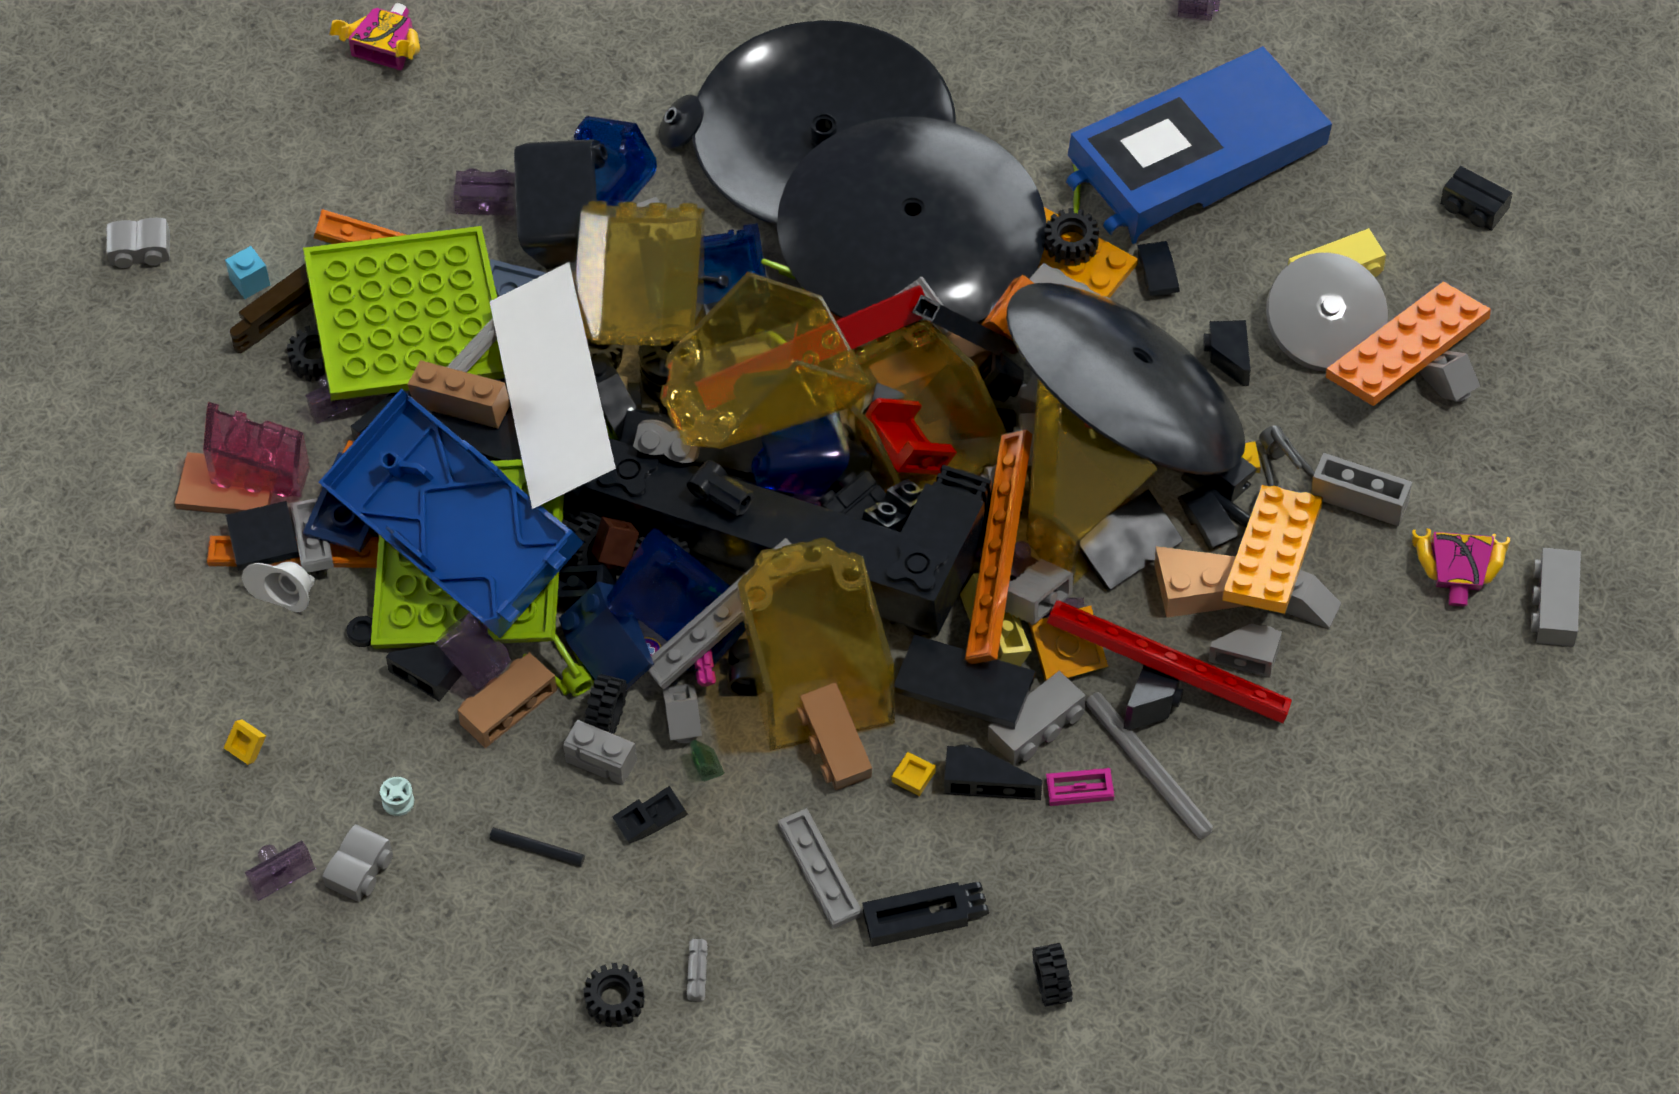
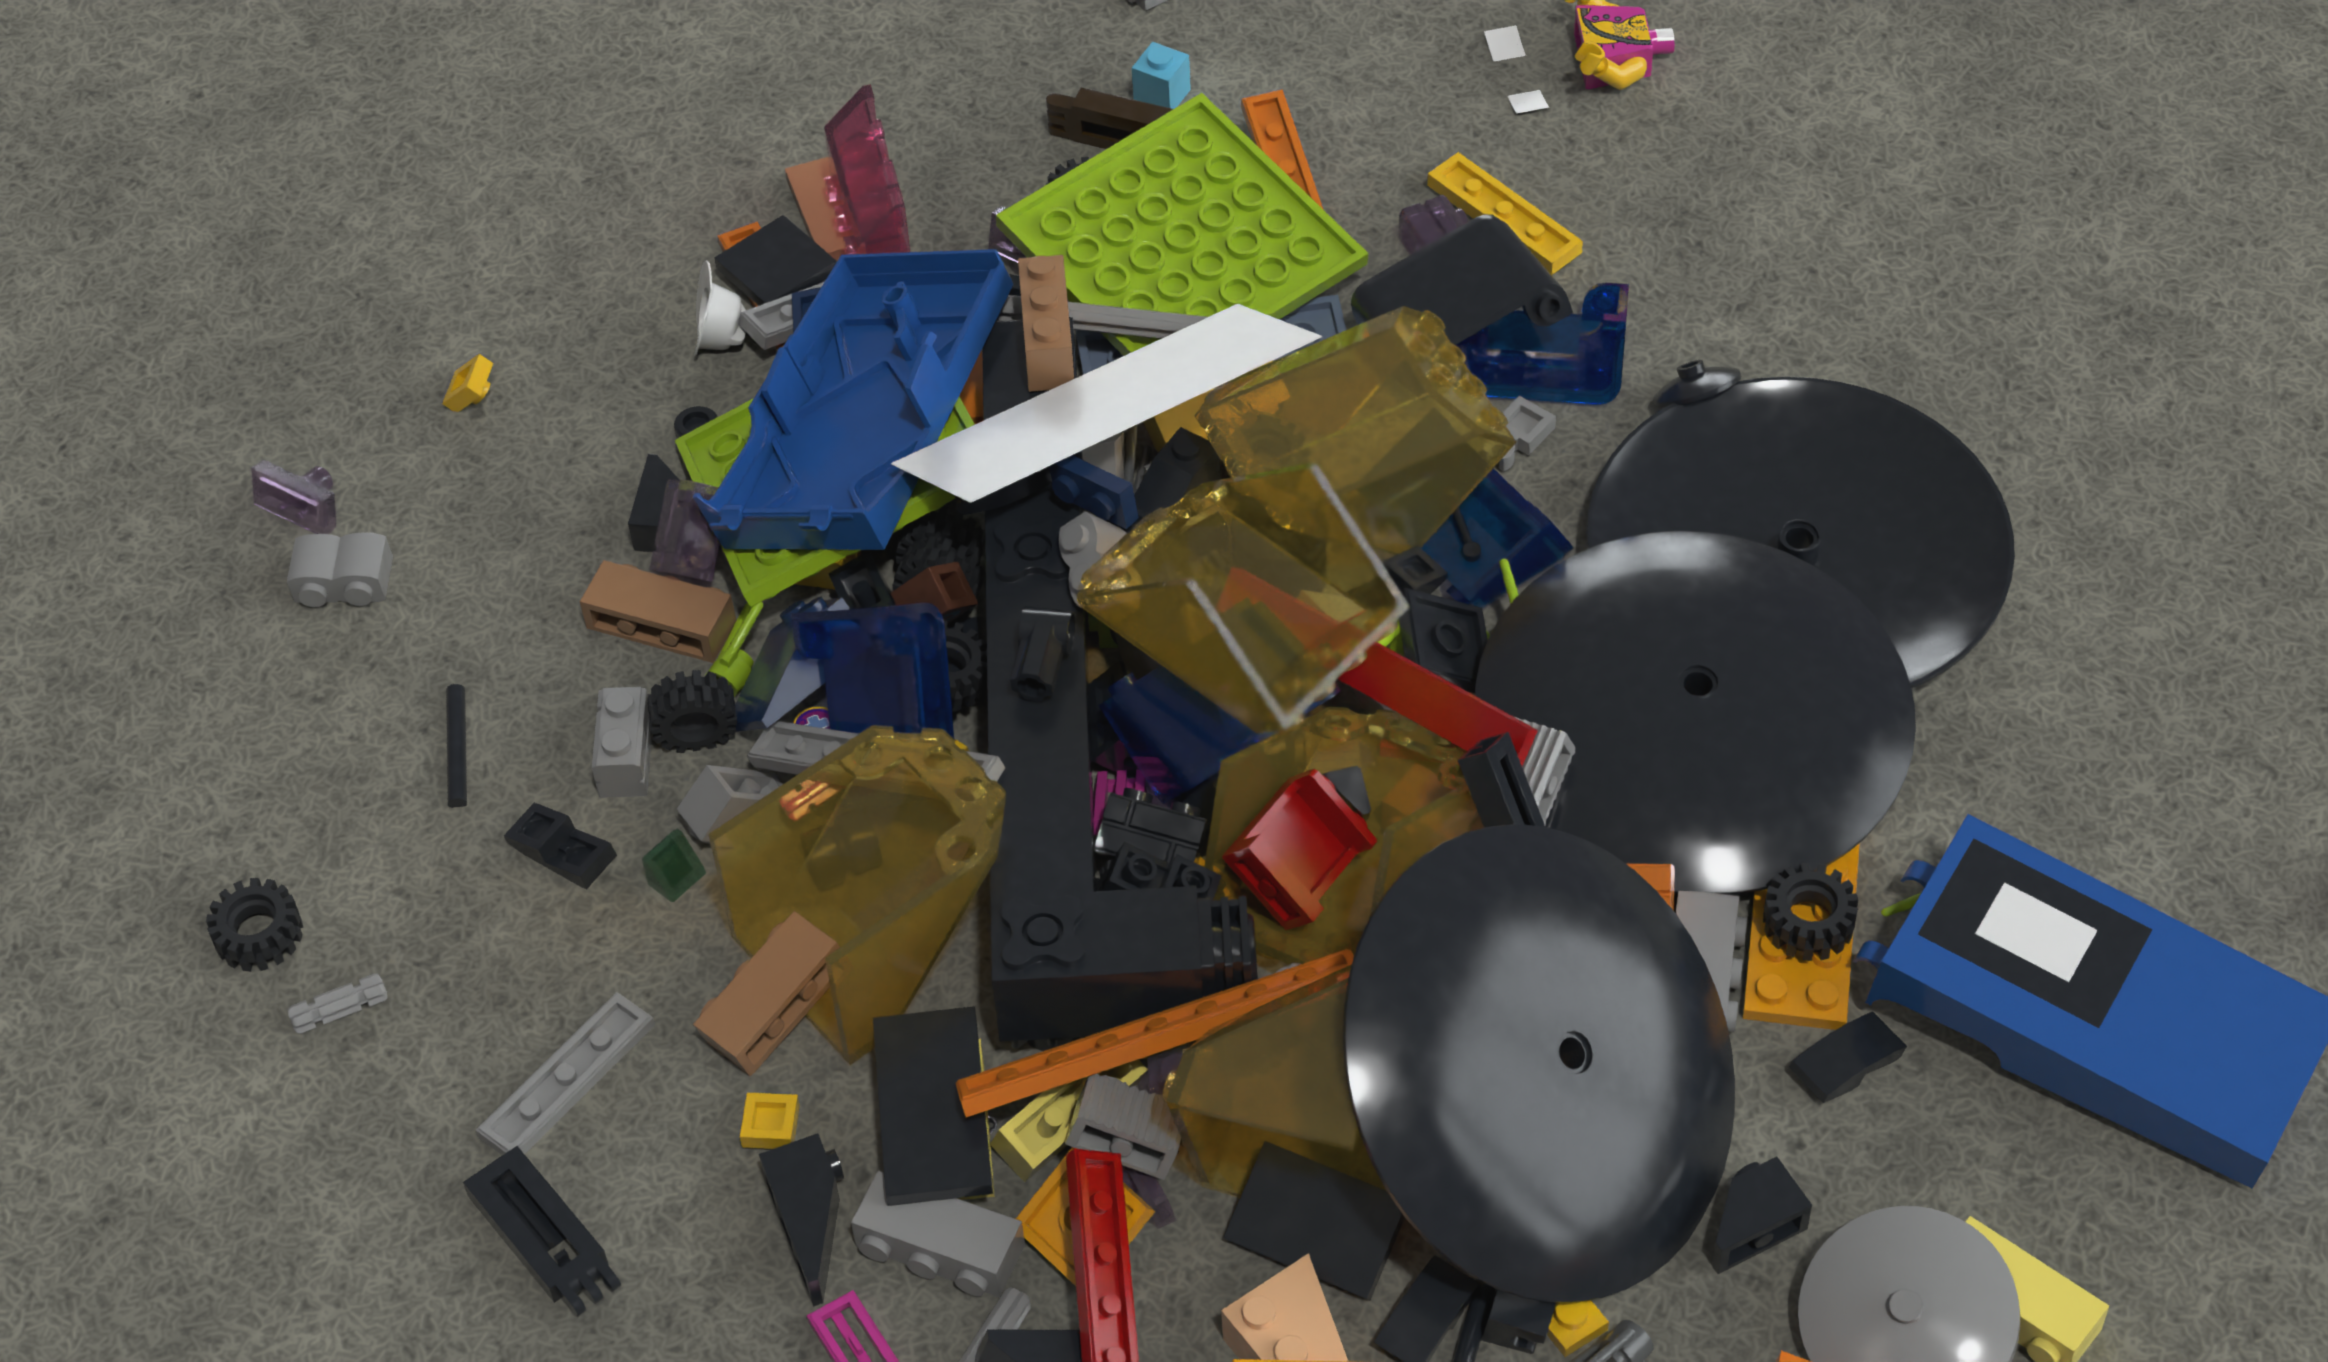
camera: 65 degrees right, 5 degrees down
(339, 93) = (1506, 44): none -> white sticker
(397, 788) = (451, 558): light aqua wheel -> none
(474, 152) = (1480, 194): none -> yellow plate
(625, 413) = (1094, 490): none -> dark blue plate

